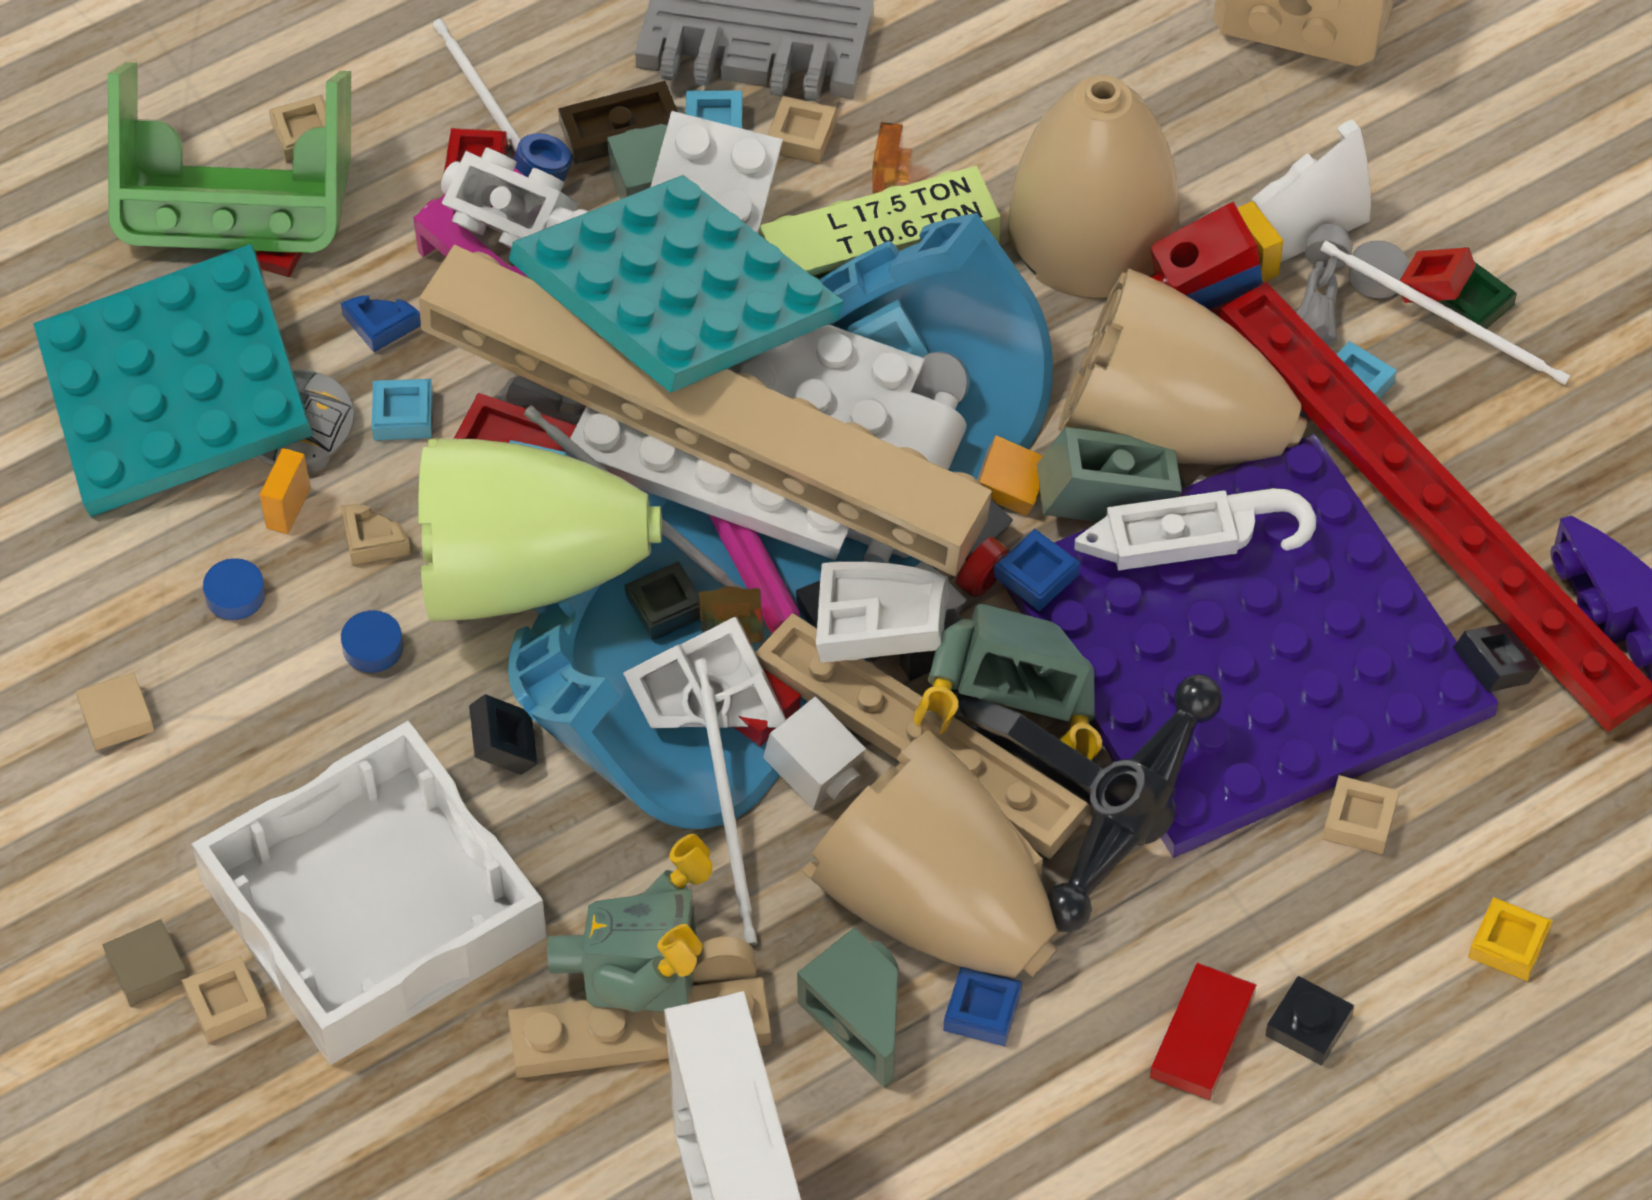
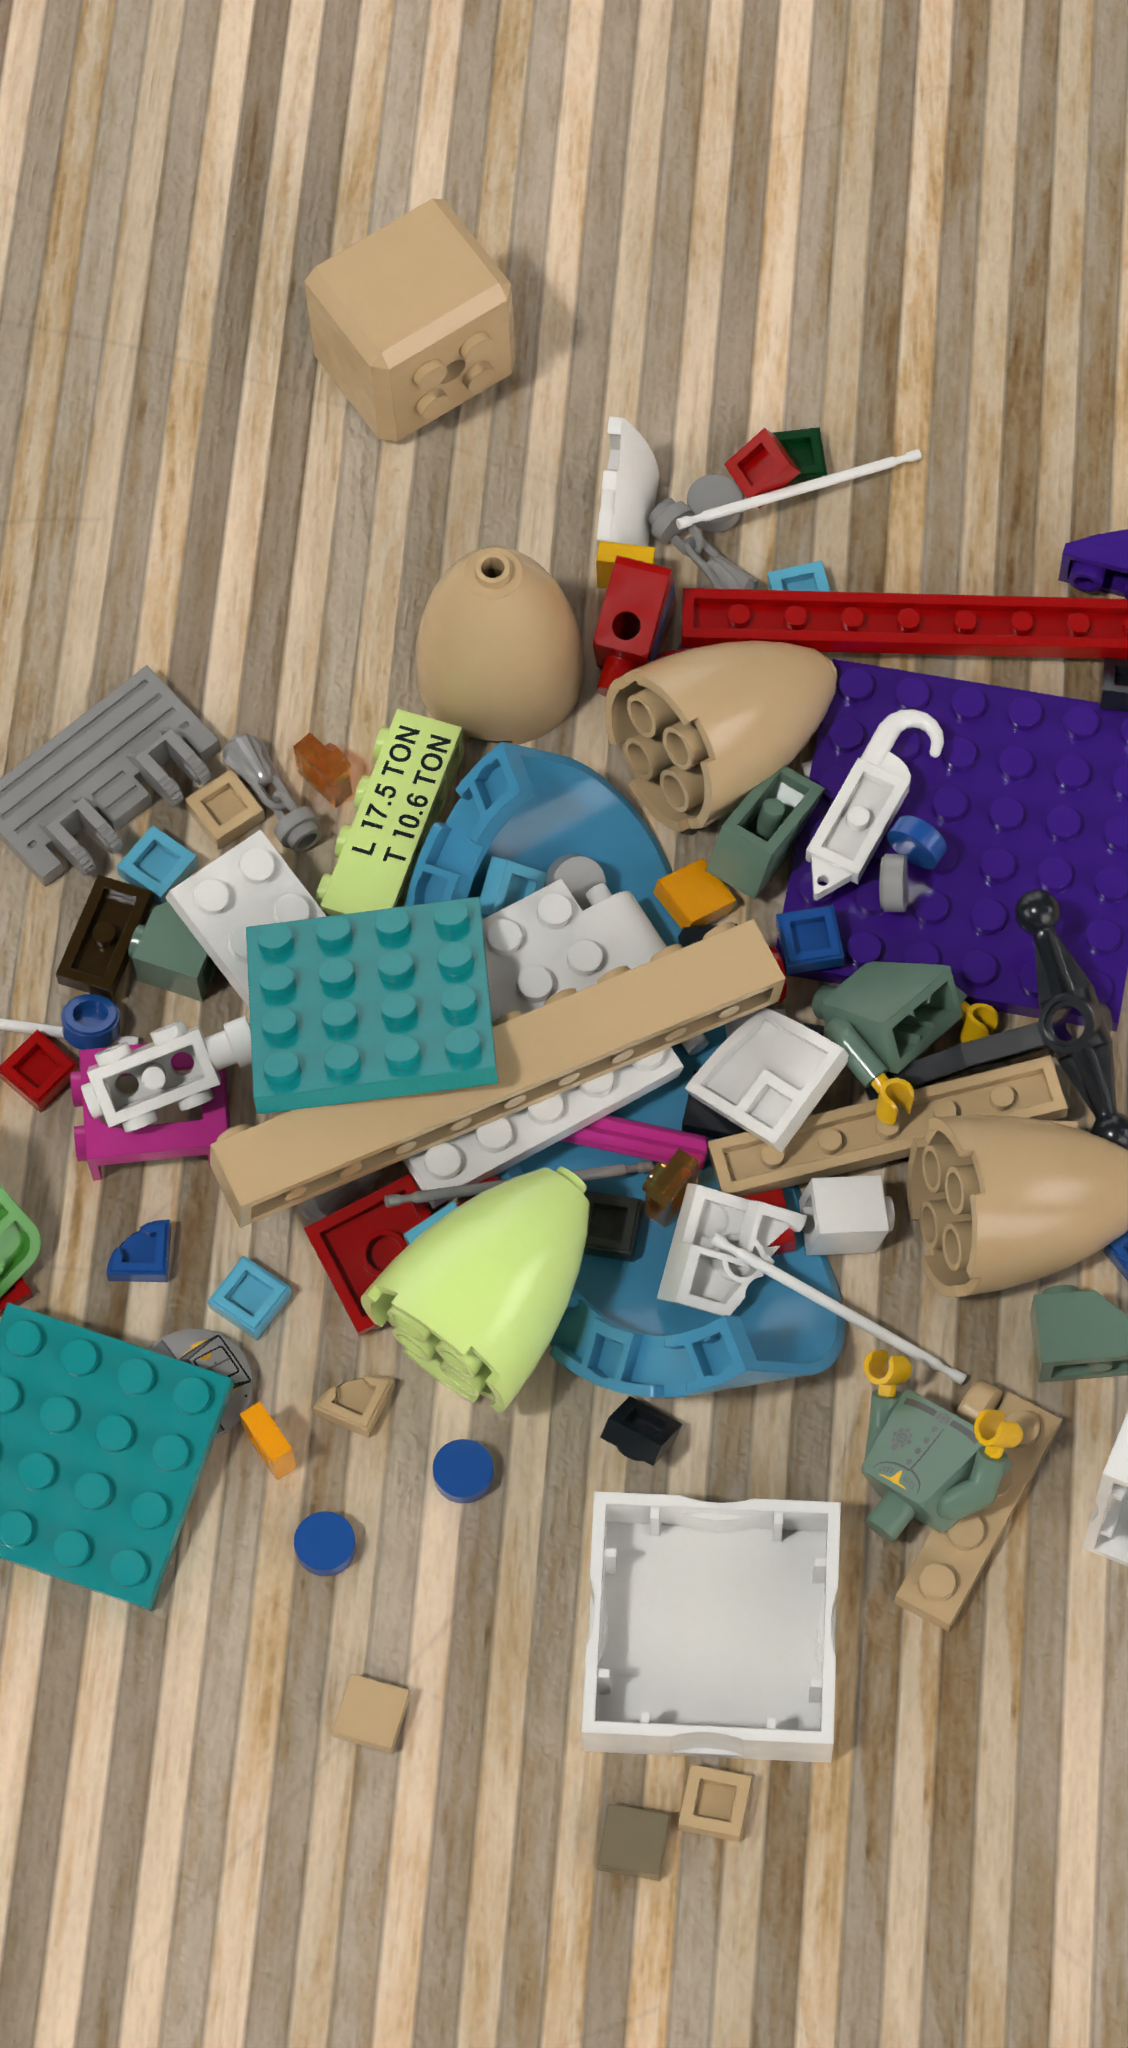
camera: 50 degrees left, 10 degrees up
(853, 118) = (252, 761): none -> light grey piece
(1138, 589) = (893, 882): none -> light grey tile
(1190, 581) = (918, 841): none -> blue tile

